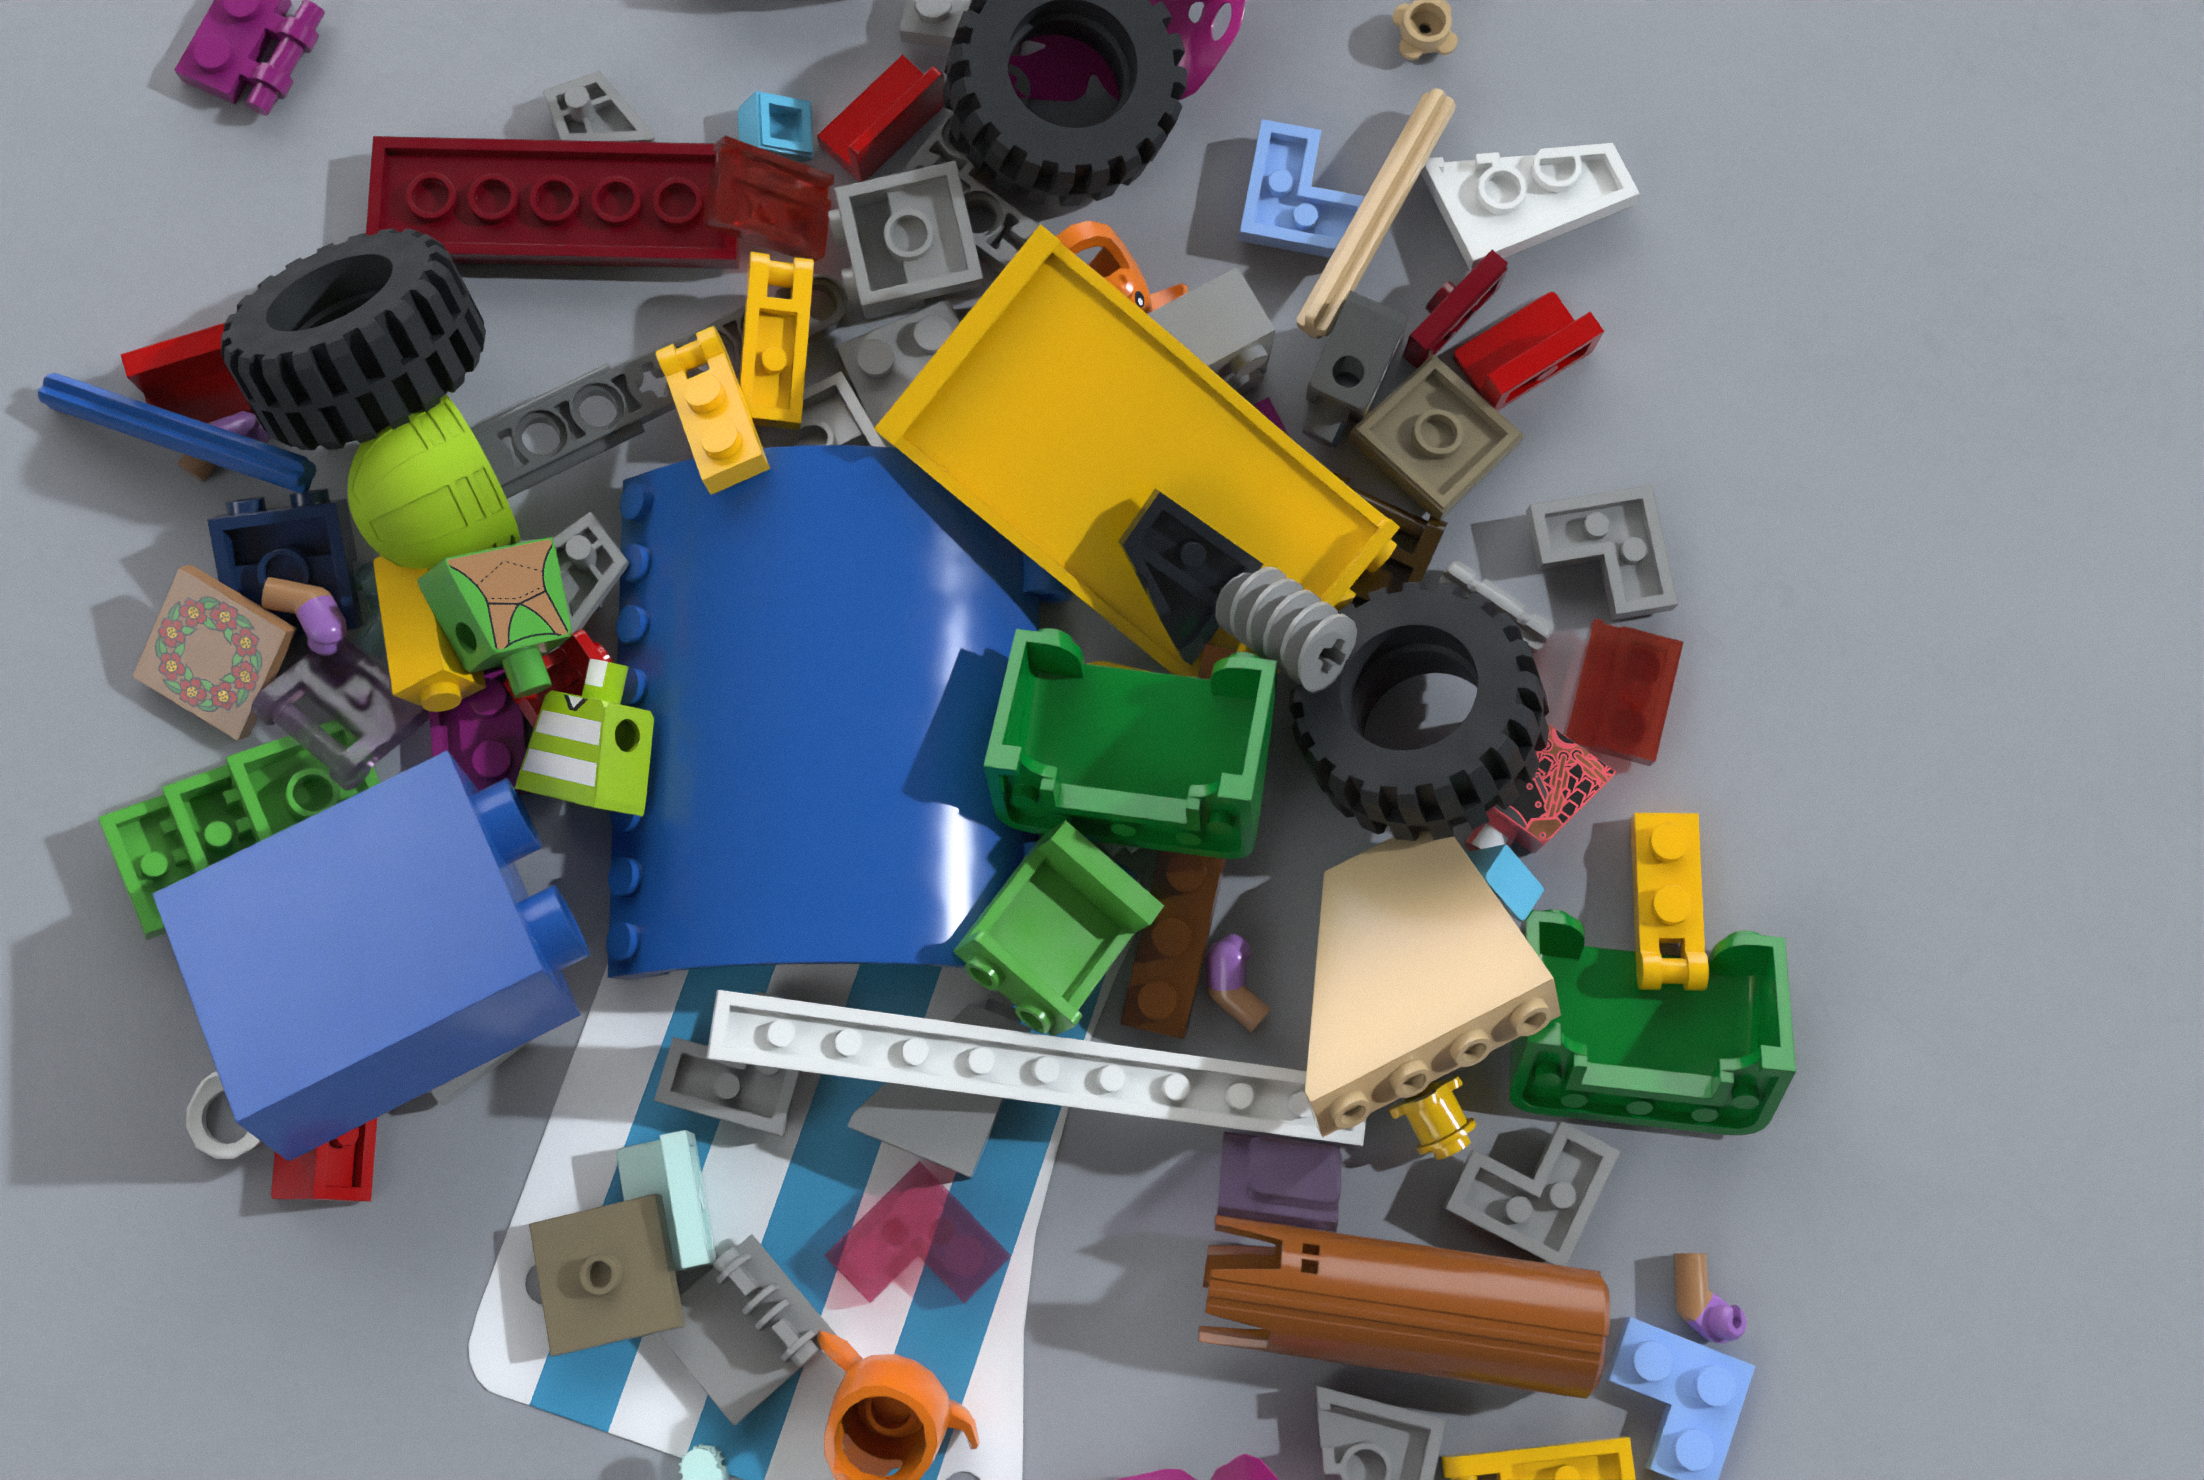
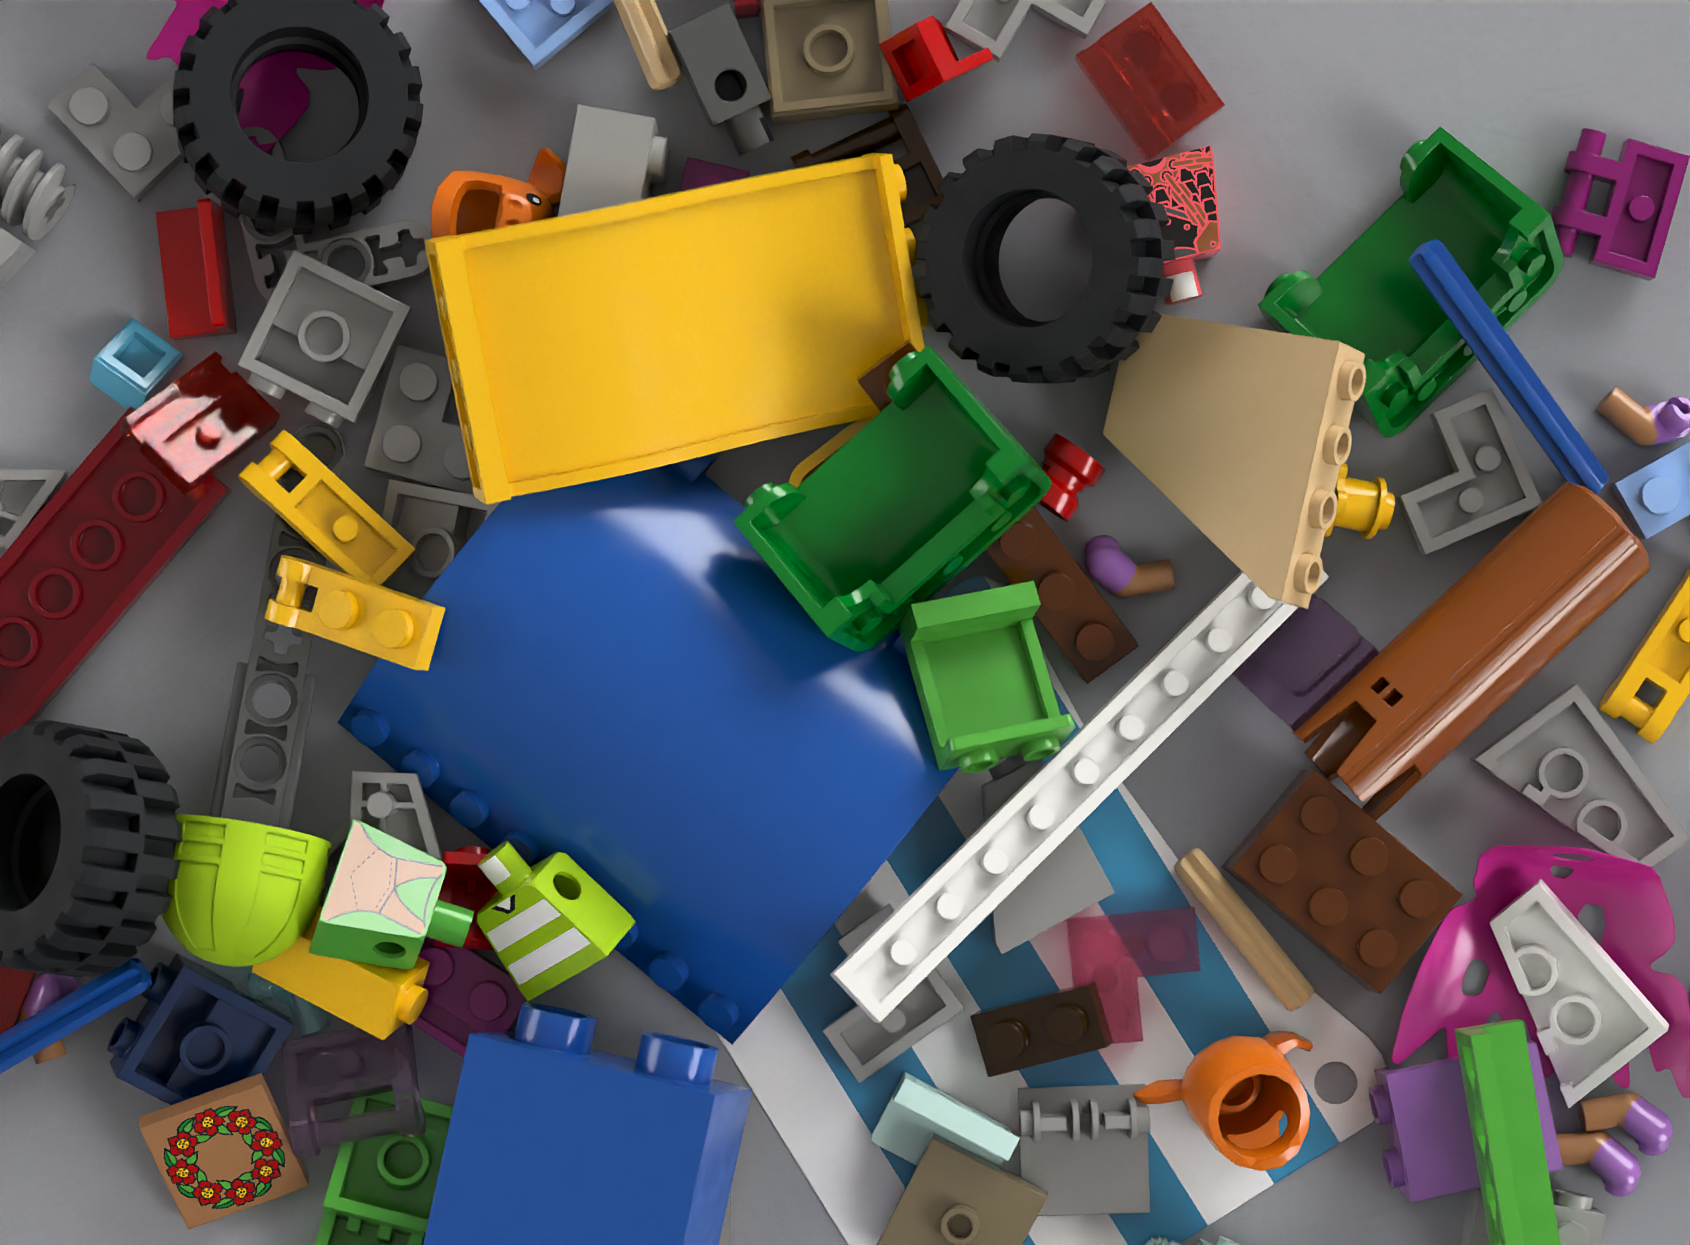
camera: 50 degrees left, 10 degrees up
(314, 609) = (257, 1048): arm -> none
(814, 1212) = (1041, 1029): none -> dark brown plate
(1026, 1313) = (1244, 929): none -> tan axle
(1130, 1359) = (1342, 880): none -> reddish brown brick
(1182, 569) = (788, 347): black wing -> none
(1269, 870) = (1070, 473): none -> red wheel
(1287, 626) = (901, 310): light grey piece -> none
(1494, 508) = (925, 58): none -> red panel
(1508, 879) = (1222, 300): medium azure slope -> none
(1533, 628) = (1001, 121): light grey axle -> none
(1648, 1144) = (1507, 366): none -> blue axle
(1668, 900) = (1335, 186): yellow plate -> none
(1858, 1152) = (1637, 208): none -> magenta plate

